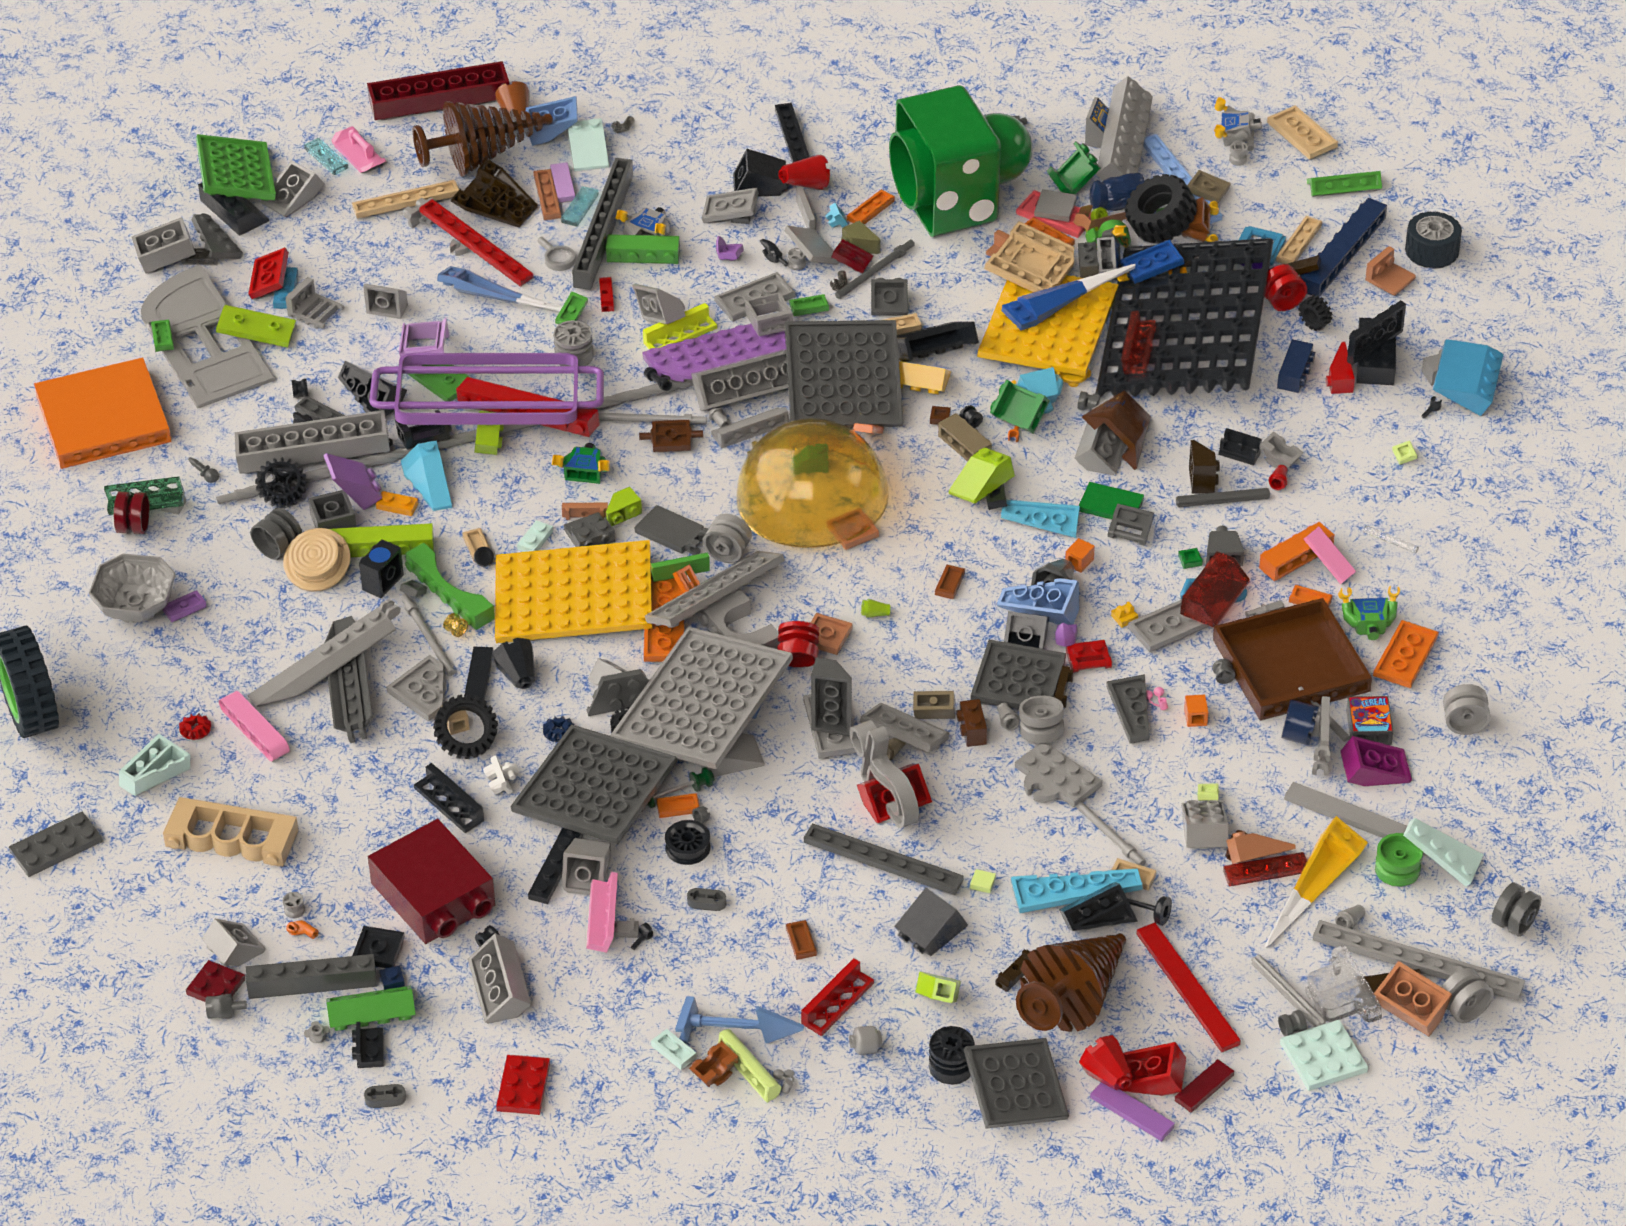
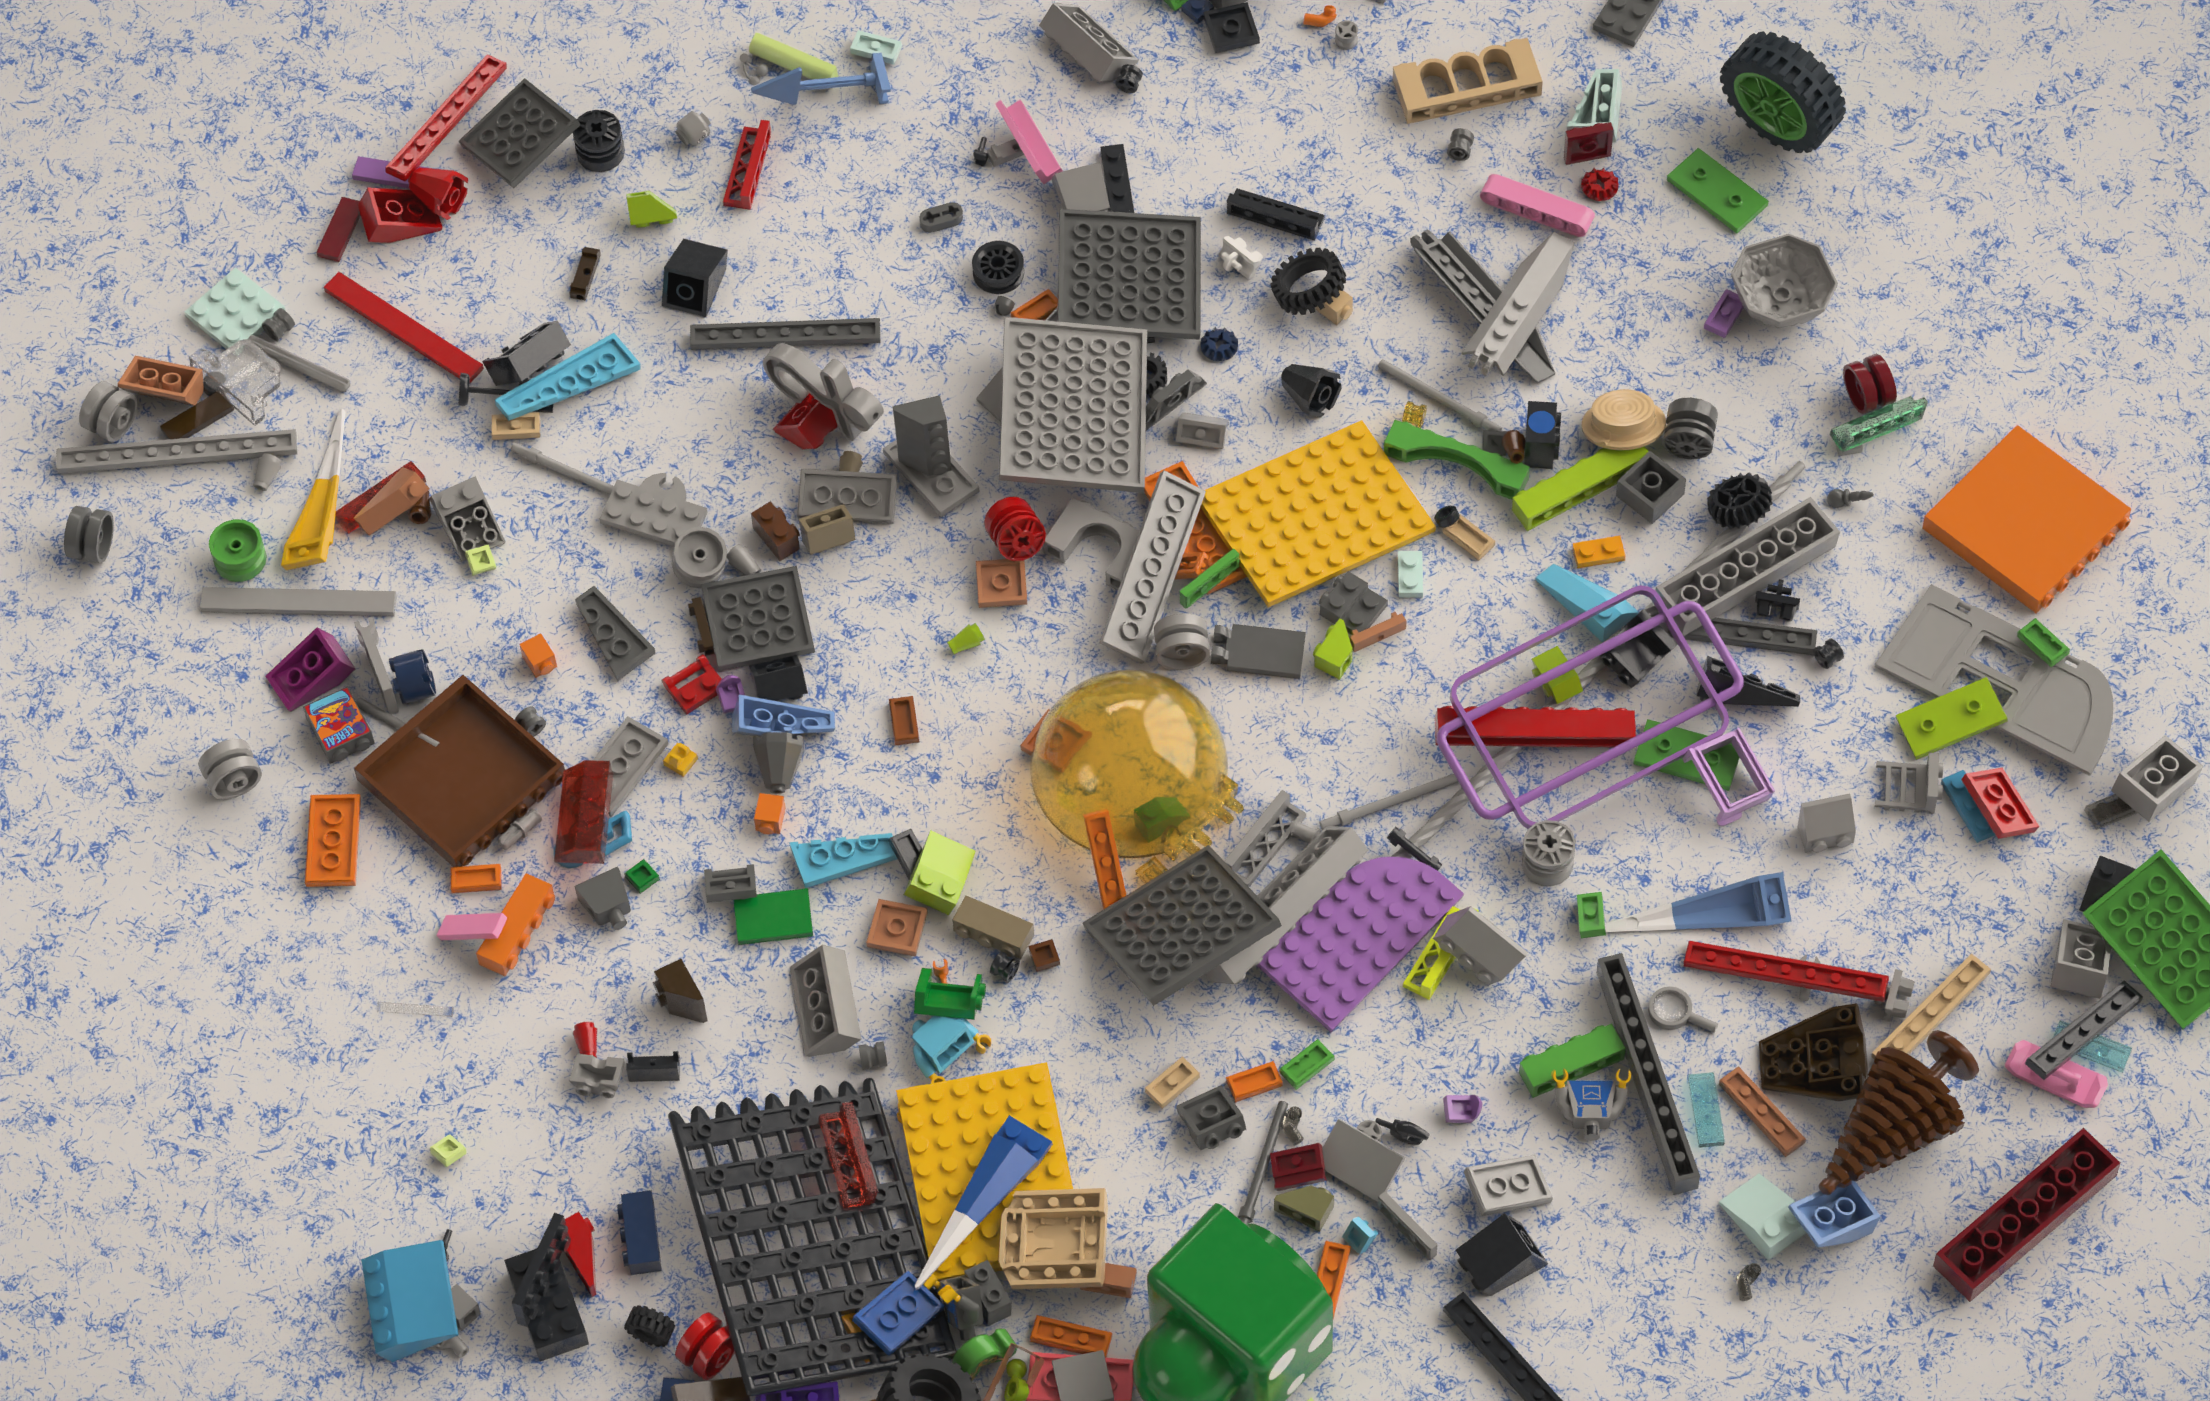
camera: 155 degrees right, 15 degrees up
(115, 689) = (1717, 190): none -> bright green plate
(186, 737) = (1588, 143): none -> dark red plate
(215, 238) = (2109, 832): dark grey wing -> none
(274, 788) = (1460, 144): none -> dark grey wheel
(331, 151) = (2083, 1030): none -> tile
(354, 480) = (1655, 524): medium lavender slope -> none
(405, 567) = (1514, 445): none -> reddish brown cone
(421, 687) = (1395, 325): light grey plate -> none
(432, 881) = (1219, 99): dark red brick -> none
(479, 672) = (1345, 363): black tile -> none
(513, 96) = (1908, 1234): dark orange cone -> none
(562, 182) = (1756, 1140): lavender tile -> none
(583, 464) = (1418, 689): torso -> none
(606, 294) = (1577, 982): red piece -> none
(631, 229) = (1601, 1074): light grey slope -> none
(671, 435) = (1347, 781): reddish brown plate -> none
(717, 1066) = (826, 40): dark orange cylinder -> none
(733, 301) = (1386, 1055): light grey tile -> none
(772, 322) = (1354, 986): light grey window -> none
(801, 939) = (821, 216): dark orange tile -> none
(806, 173) = (1438, 1267): red cone -> none
(847, 312) = (1254, 1081): none -> orange tile
(923, 377) = (1109, 1007): yellow slope -> none
(936, 339) = (1126, 1063): black windscreen -> none
(982, 881) = (670, 357): yellowish green tile -> none
(1031, 464) = (897, 927): none -> nougat plate
(1068, 982) = (510, 250): reddish brown plant -> none
(1070, 1126) = (445, 118): none -> tile
(1126, 420) = (806, 1015): reddish brown wedge -> none
(1159, 691) = (593, 671): bright pink piece -> none
(1222, 497) = (636, 986): dark grey axle -> none
(1369, 615) = (394, 871): bright green torso -> none
(1449, 853) = (188, 570): light aqua wing -> none

